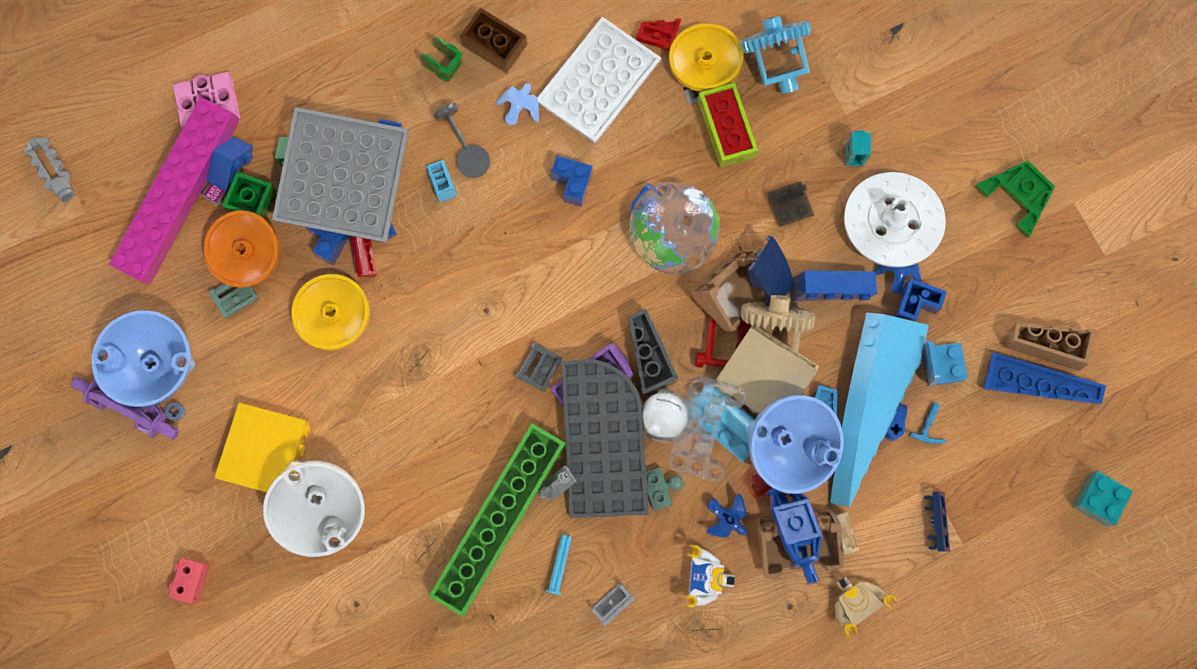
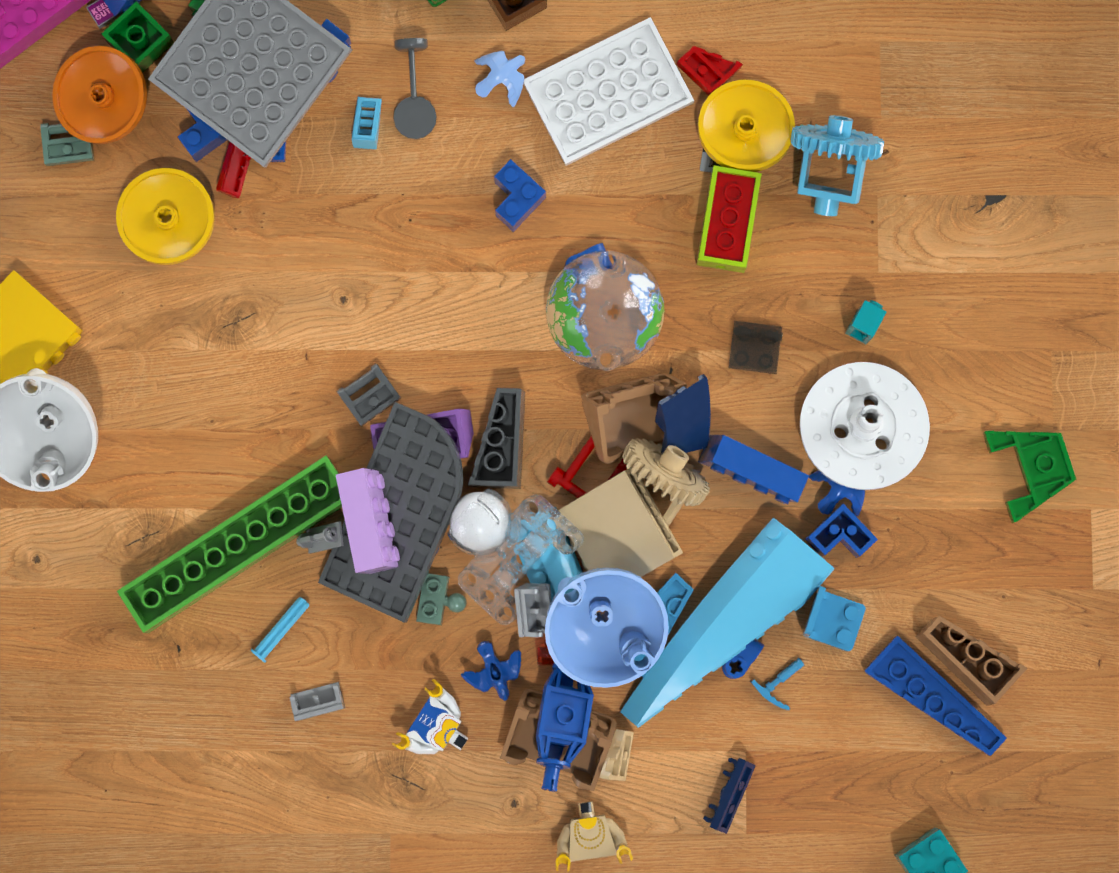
camera: 25 degrees right, 5 degrees up
(586, 454) = (367, 520): none -> lavender piece
(734, 459) = (532, 606): none -> light grey hinge

